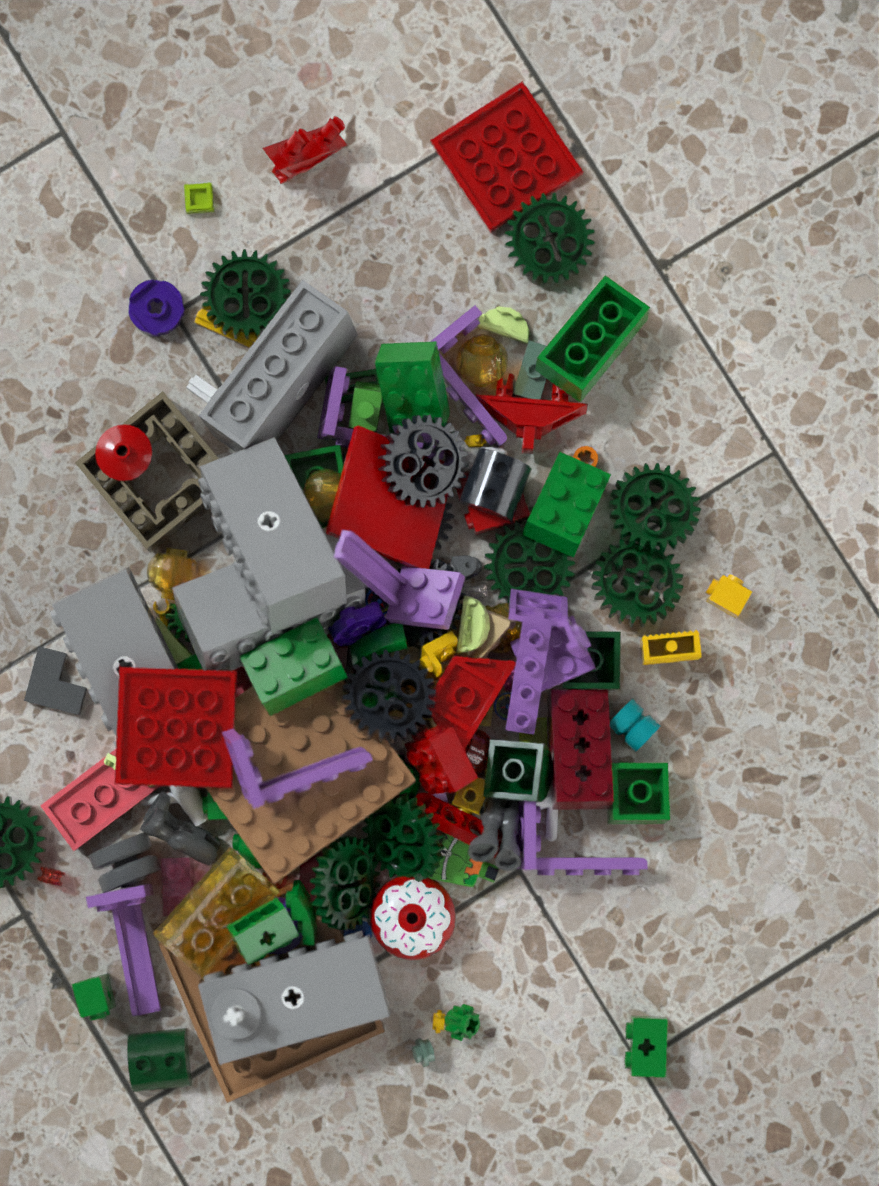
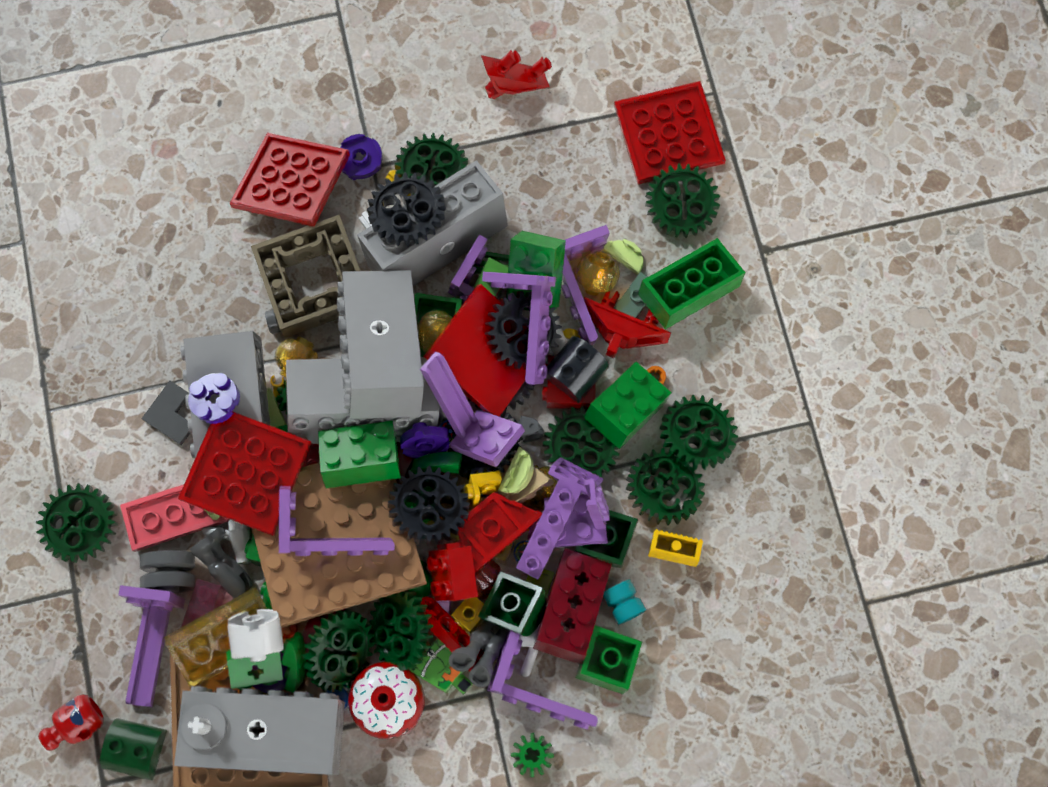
camera: 15 degrees right, 10 degrees down
(51, 876) = (106, 565): clear red bush -> none
(85, 1055) = (73, 723): none -> red piece
(87, 364) = (290, 179): none -> red tile
(94, 997) = (99, 675): green brick -> none
(97, 655) = (207, 386): none -> plate
(127, 466) = (291, 260): red dish -> none
(129, 539) = (272, 321): none -> dark grey tile
(199, 198) = (422, 89): lime tile -> none
(254, 900) = (255, 634): none -> white brick
(262, 349) = (387, 220): none -> black gear
(441, 449) = (539, 317): none -> medium lavender bracket
(589, 911) = (535, 746): none -> green gear
(728, 594) = (737, 522): yellow brick -> none

